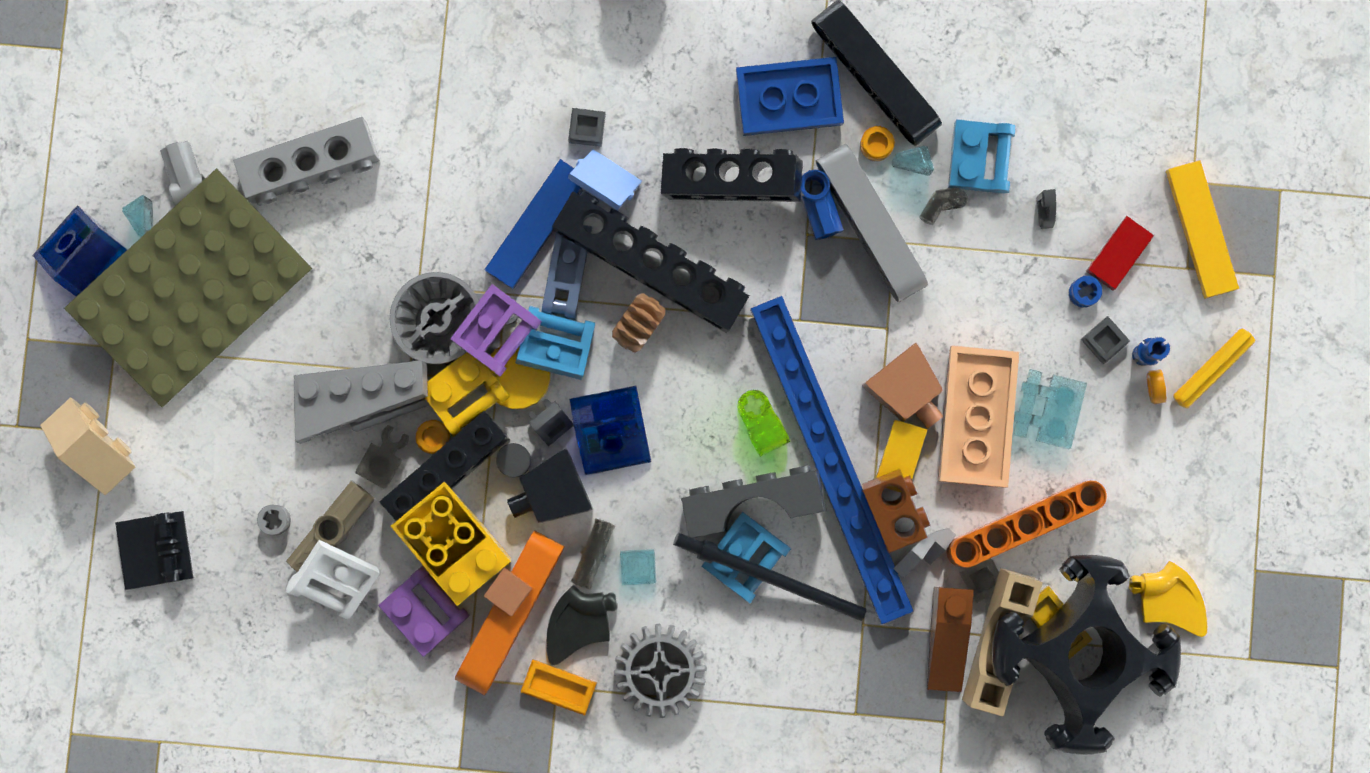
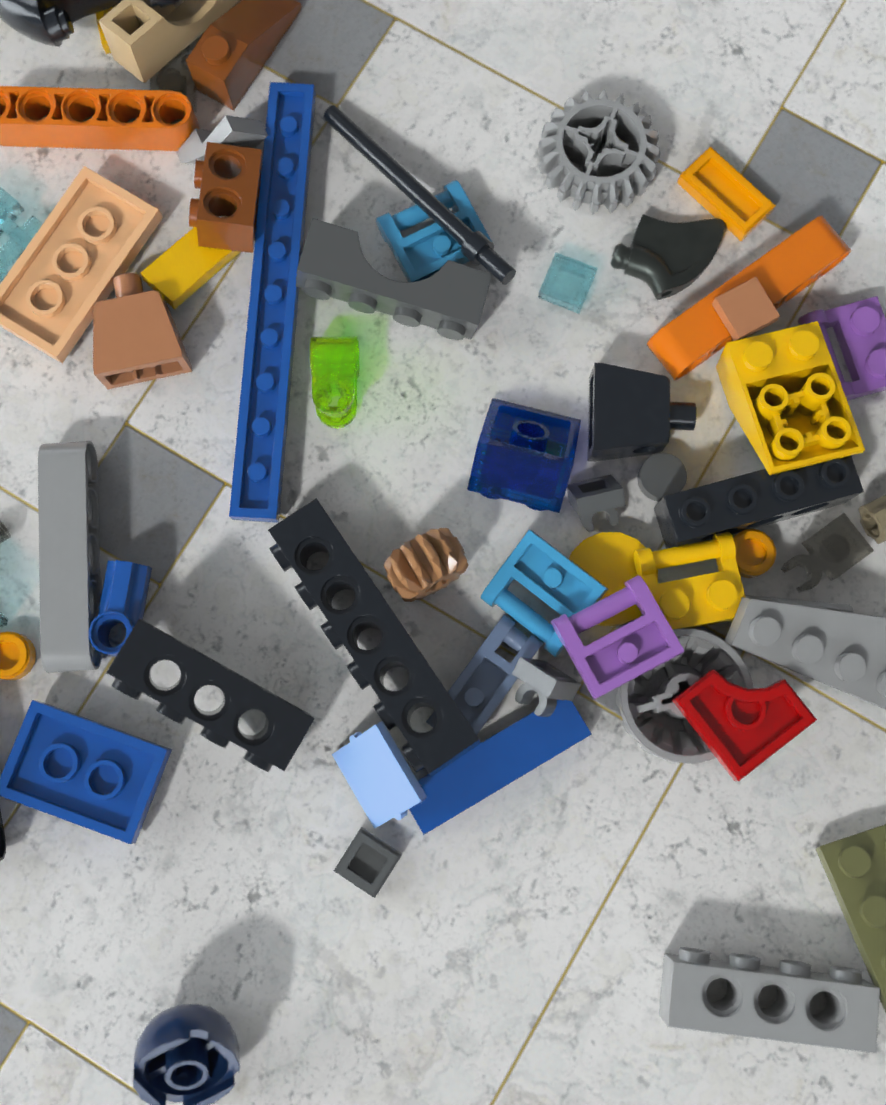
camera: 150 degrees left, 5 degrees down
(395, 315) = (743, 723): none -> red tile
(528, 286) = (545, 681): none -> dark grey tile
(593, 553) = (615, 320): clear smoke pin -> none

